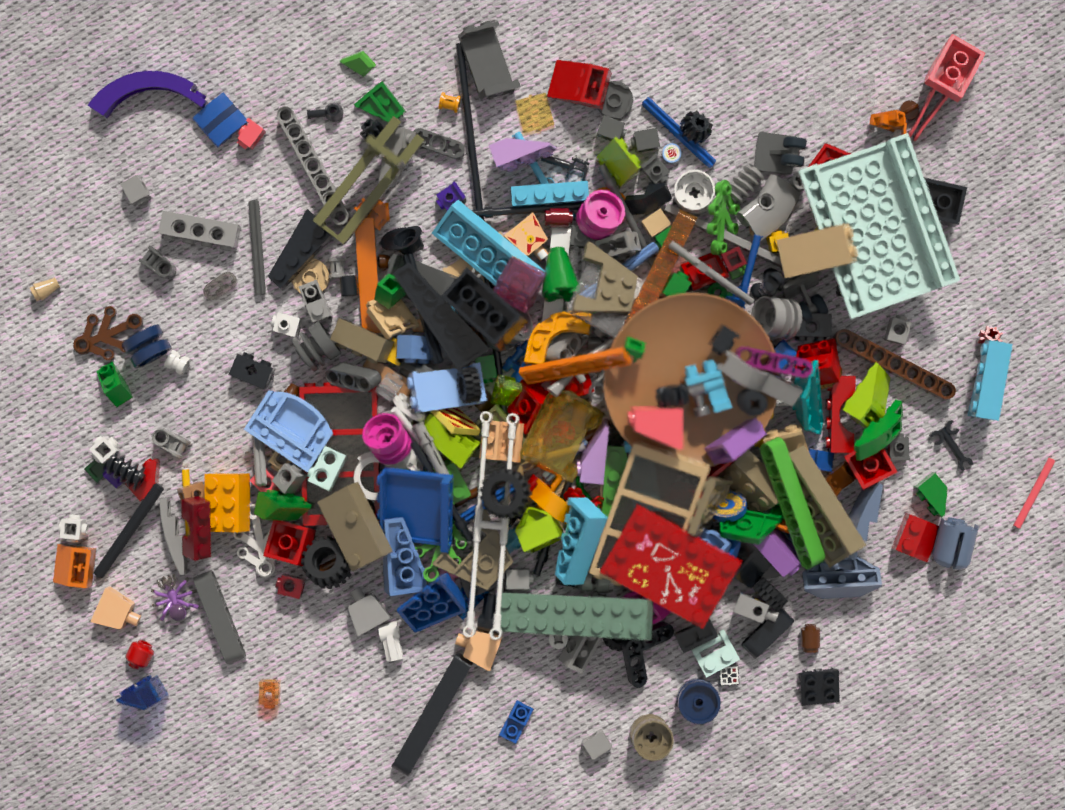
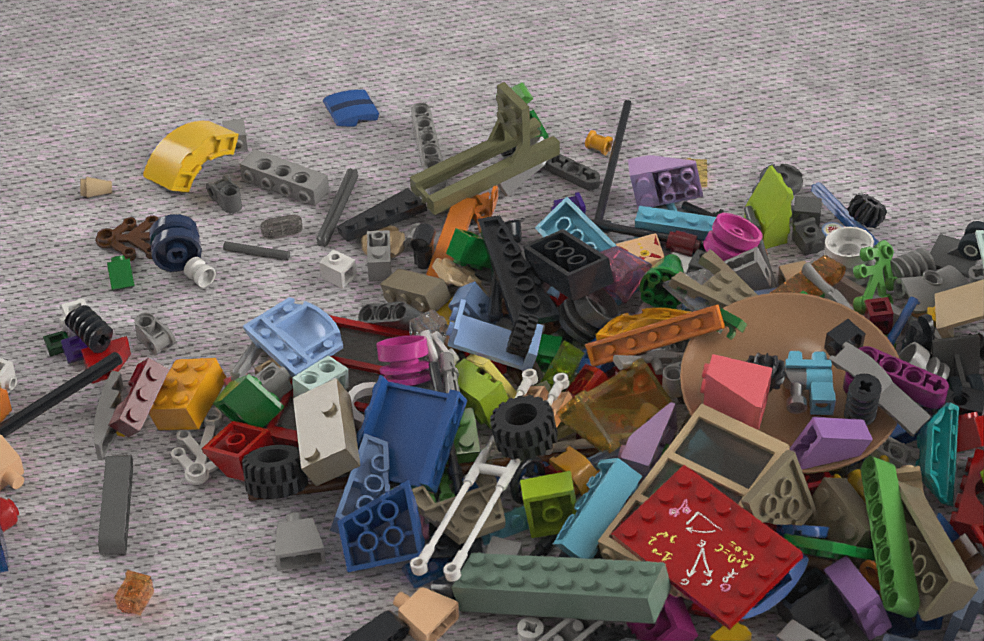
camera: 25 degrees right, 45 degrees down
(106, 228) = (183, 152): none -> yellow panel
(124, 87) = (283, 65): dark purple arch -> none
(175, 601) = (71, 474): animal -> none
(211, 318) = (256, 250): none -> dark grey bar
(250, 135) = (377, 122): coral brick -> none
(260, 378) = (273, 290): black brick -> none
(298, 582) = (219, 494): dark red brick -> none
(316, 346) = (356, 285): dark grey wheel -> none
(326, 112) = (470, 126): black bar -> none
(390, 635) = (313, 576): white piece -> none
(486, 61) = (652, 117): dark grey panel -> none
(580, 83) = (750, 151): red slope -> none
(653, 198) = (792, 253): black slope -> none

